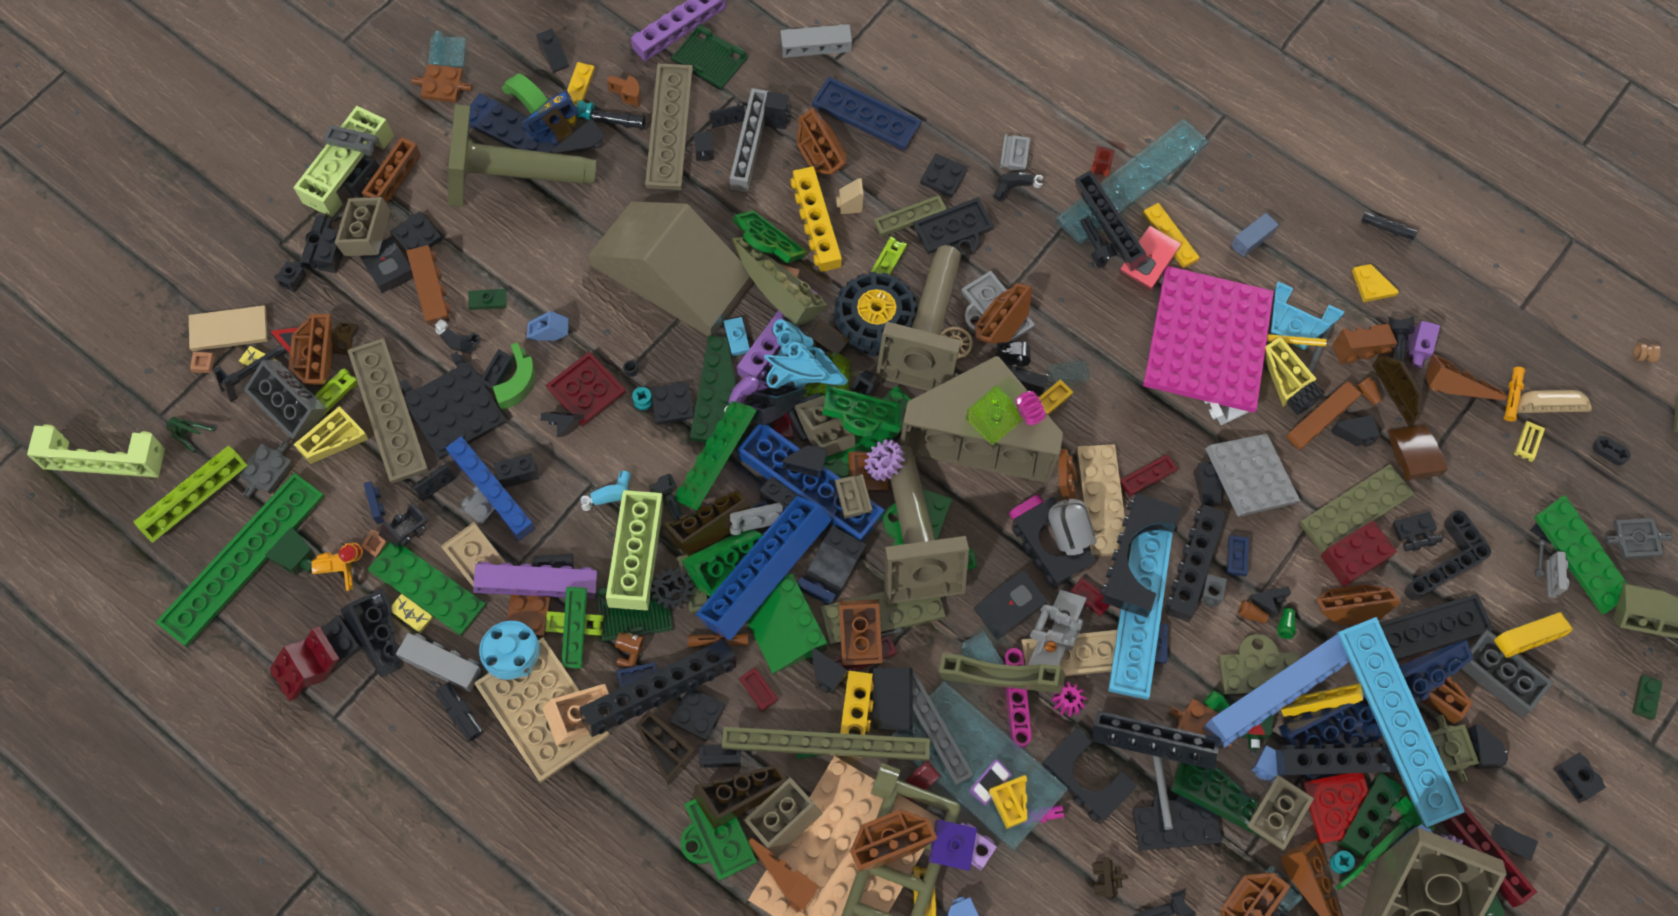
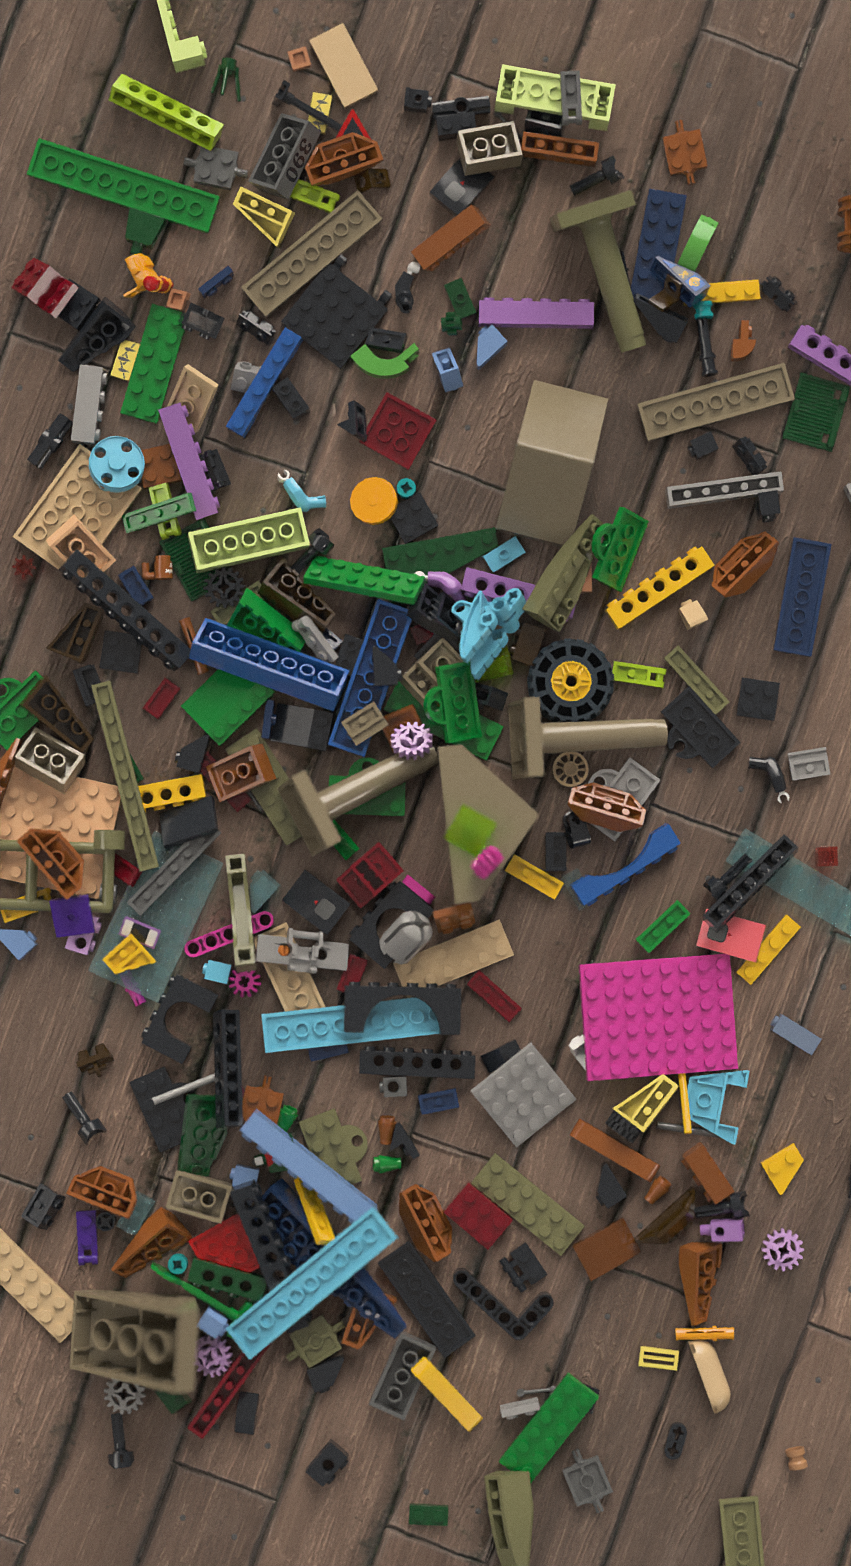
camera: 75 degrees right, 20 degrees up
(415, 233) = (505, 200): black plate -> none
(430, 143) = (608, 172): none -> black piece
(446, 50) = (724, 141): clear light blue hinge -> none
(507, 310) = (451, 323): none -> dark green gear
(529, 240) = (536, 313): none -> medium lavender brick
(539, 287) = (488, 345): none -> medium blue slope
(552, 50) = (761, 249): black slope -> none
(572, 775) = (27, 571): none -> clear red gear
(589, 52) = (784, 297): none -> black hinge
(631, 368) = (434, 462): black hinge -> none
(642, 429) = (374, 500): none -> light orange wheel
(1000, 544) = (369, 875): none -> dark red bracket
(1049, 291) = (658, 843): none -> blue arch
(1051, 722) = (217, 971): none -> medium azure brick
(1126, 309) = (663, 926): none -> green container
(1449, 305) = (779, 1258): none -> lavender gear

